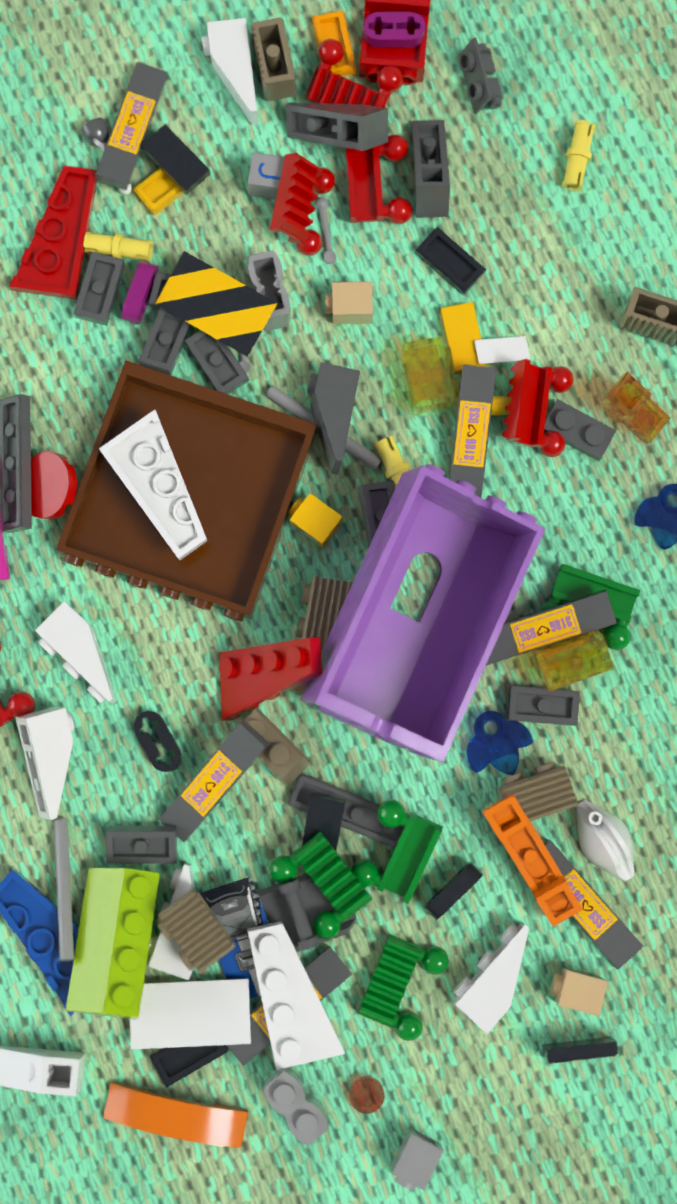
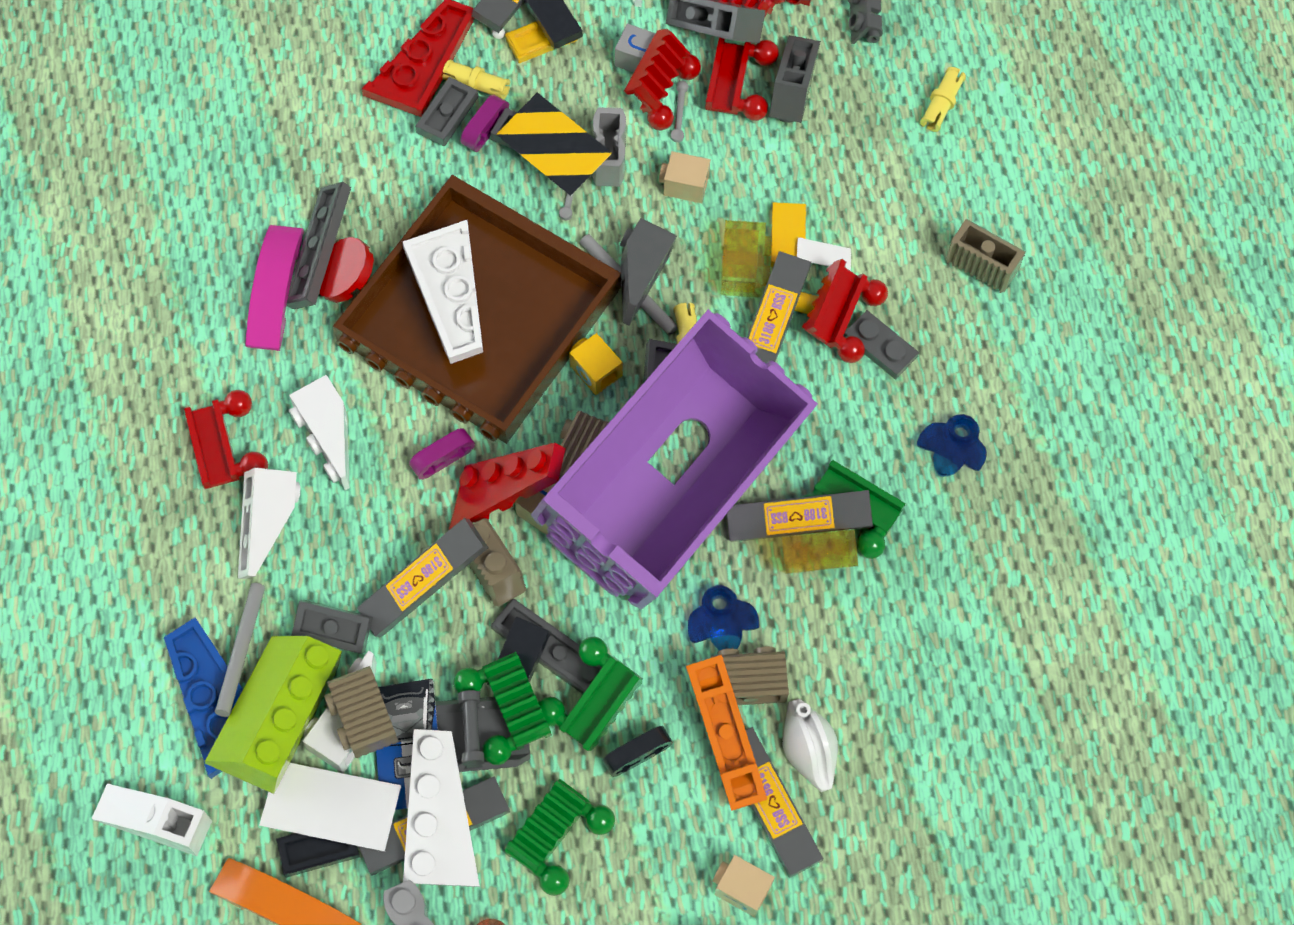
camera: 15 degrees right, 15 degrees down
(150, 746) = (370, 536): black beam -> none
(164, 342) = (496, 169): dark grey plate -> none
(195, 648) = (441, 453): none -> magenta beam
(217, 362) = (540, 199): dark grey plate -> none
(450, 261) = (793, 164): black tile -> none
(492, 988) = (650, 860): white slope -> none
(543, 707) = (779, 593): dark grey plate -> none
(631, 405) = (937, 329): clear orange brick -> none

